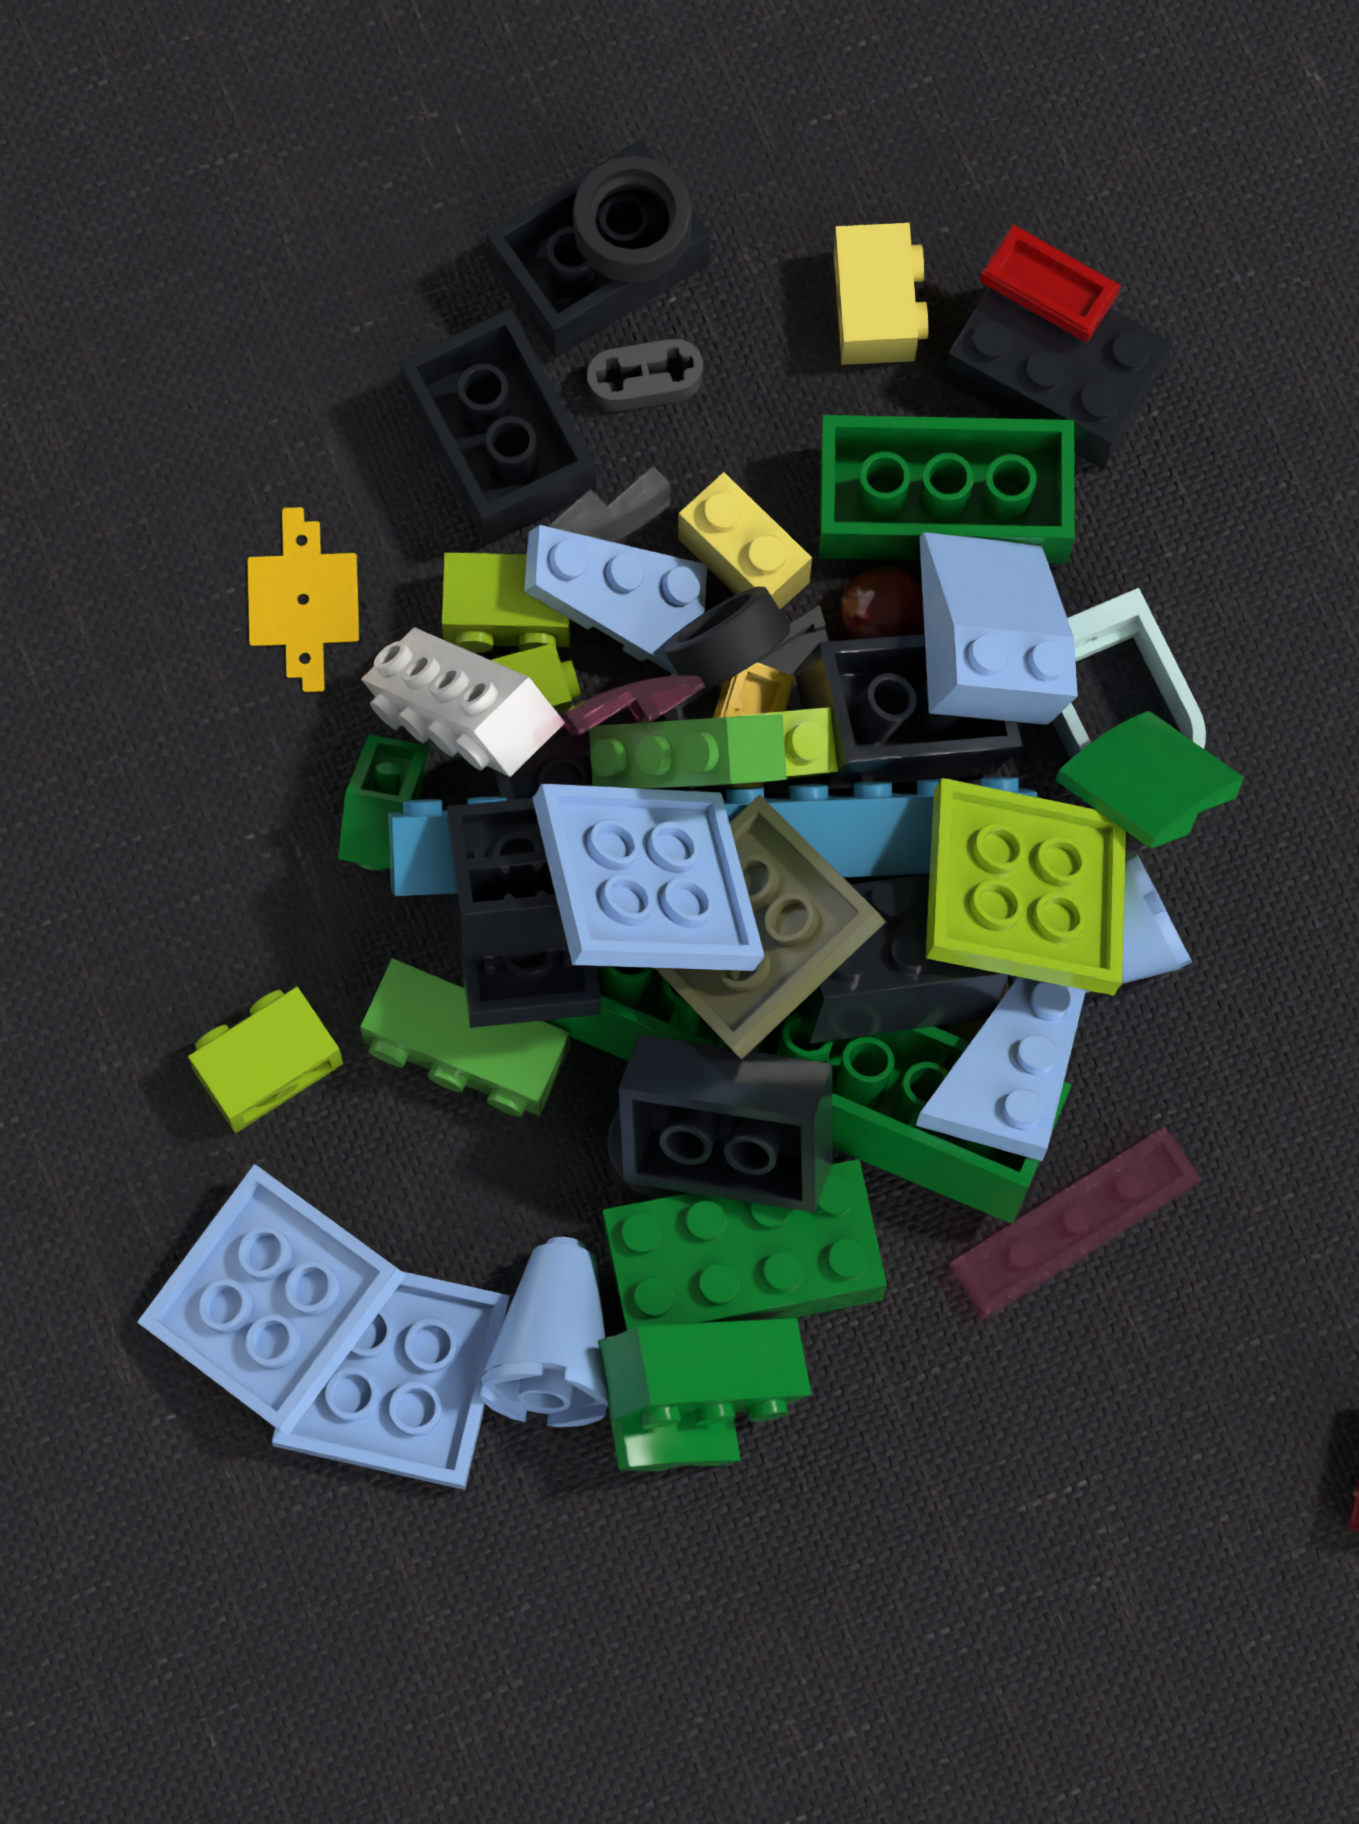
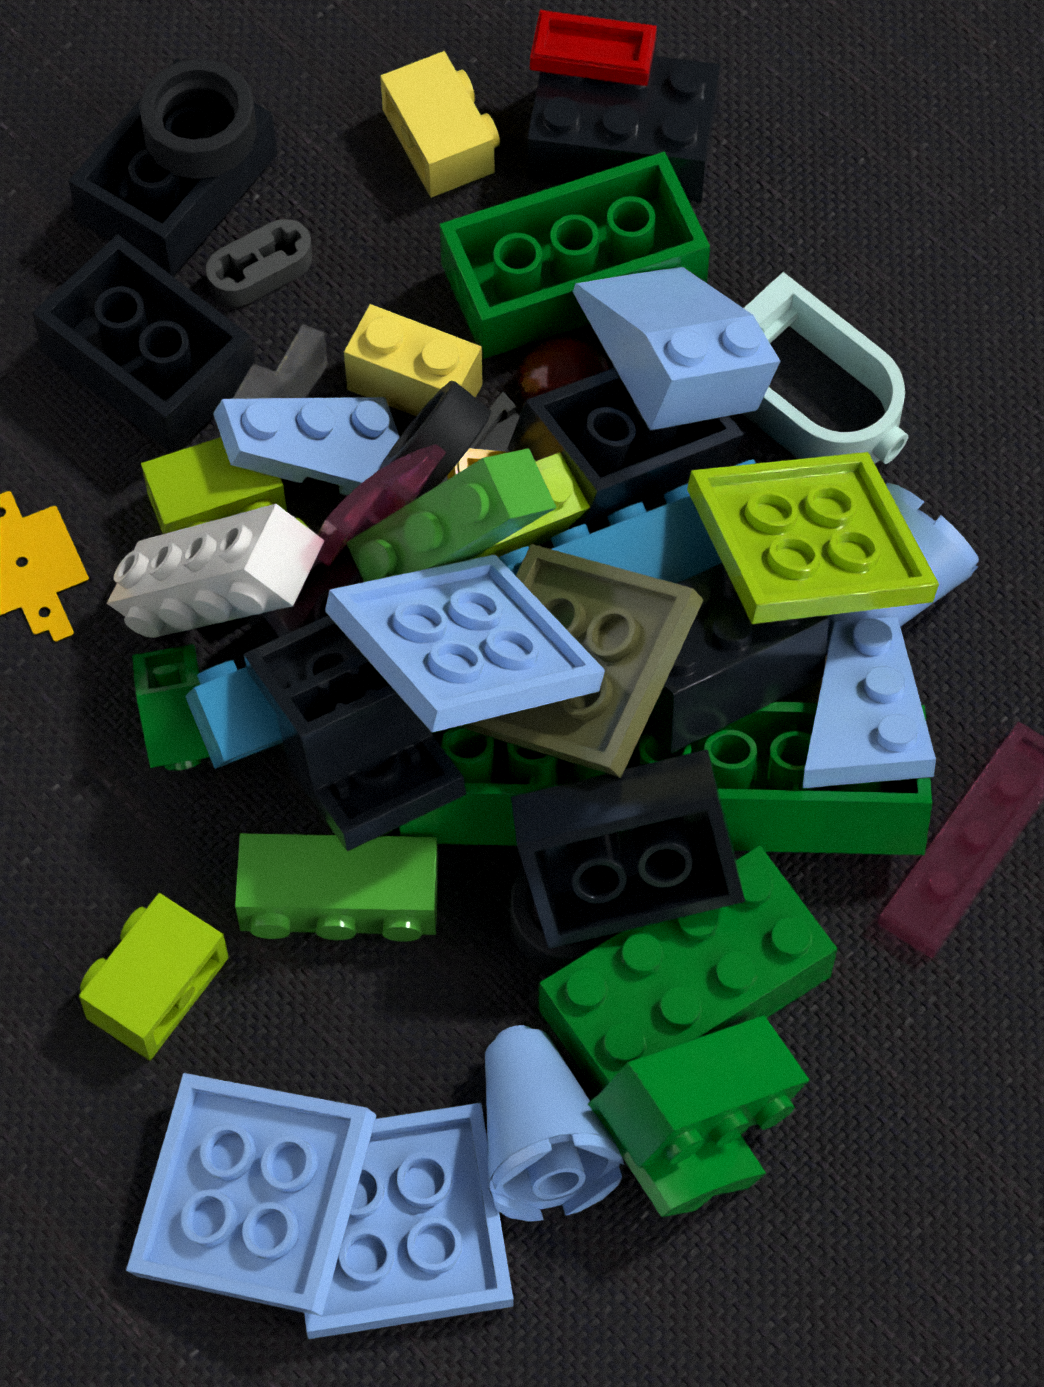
camera: 20 degrees left, 10 degrees down
(1149, 779) = (872, 416): green slope -> none

